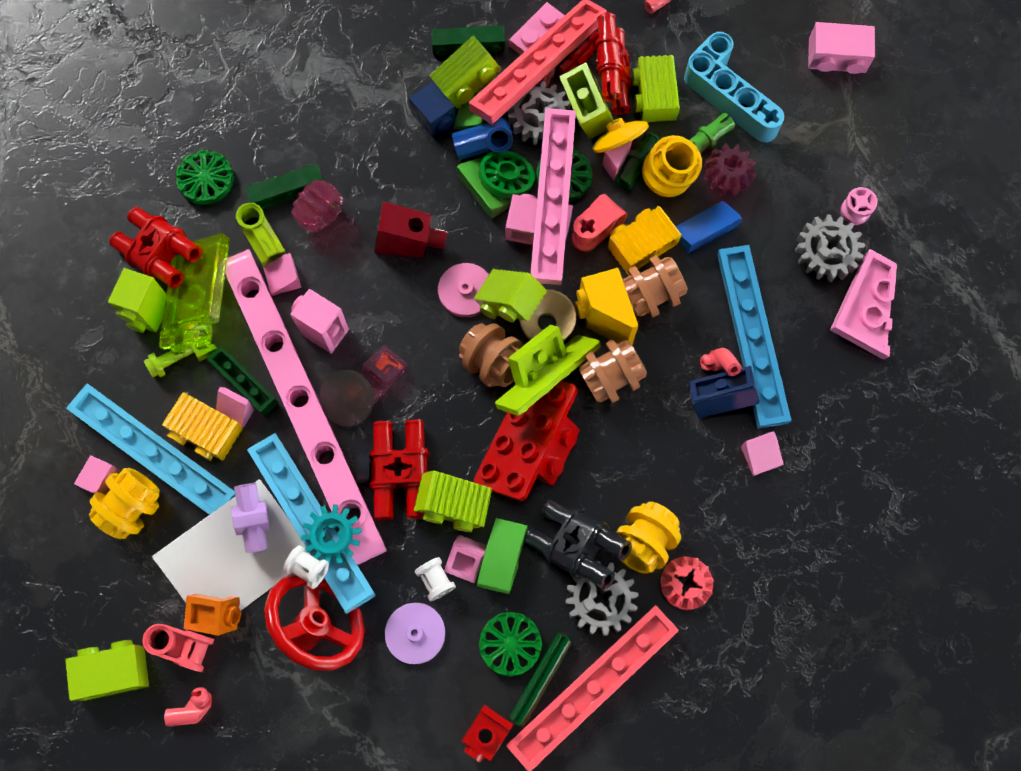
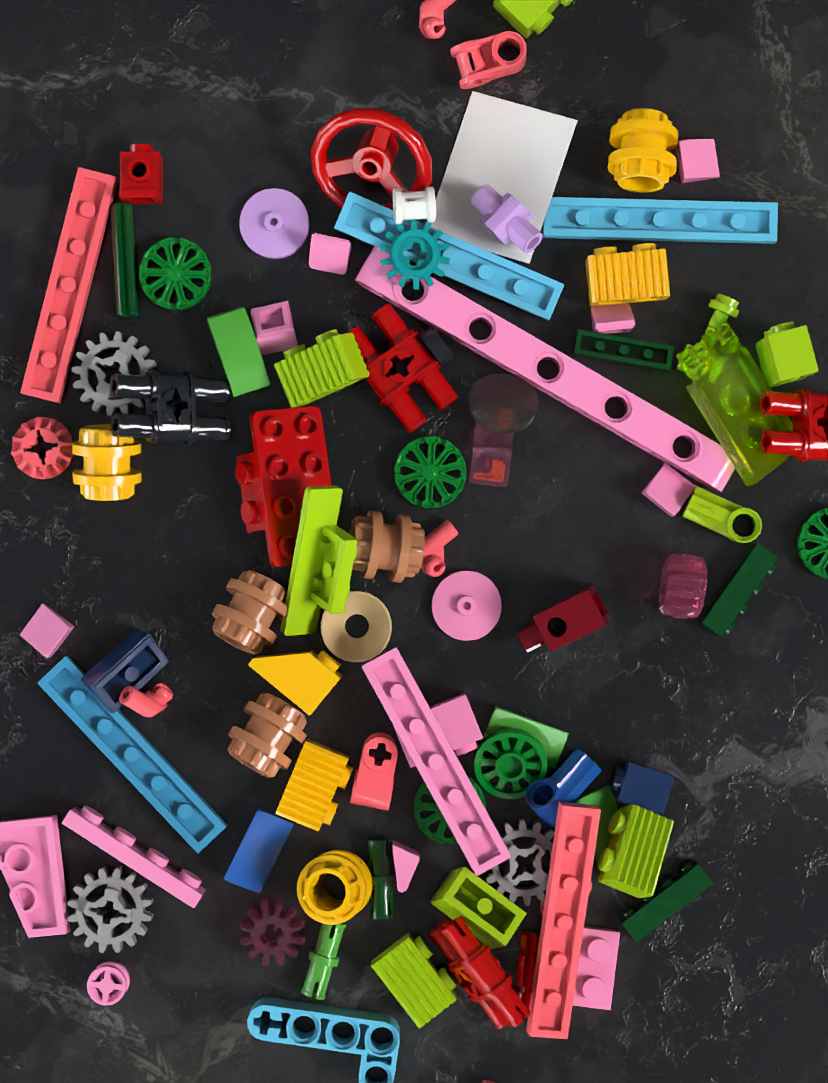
camera: 145 degrees right, 15 degrees up
(211, 614) = (478, 106): orange bracket -> none
(319, 320) = (587, 459): bright pink brick -> none
(391, 582) = (329, 254): none -> bright pink slope
(428, 388) = (430, 472): none -> green wheel
(435, 579) = (288, 285): white bush -> none
(452, 342) = (433, 557): none -> coral arm
(510, 295) = (408, 620): lime brick -> none
(619, 134) = (413, 887): yellow dish -> none
(797, 280) = (148, 863): none -> bright pink plate

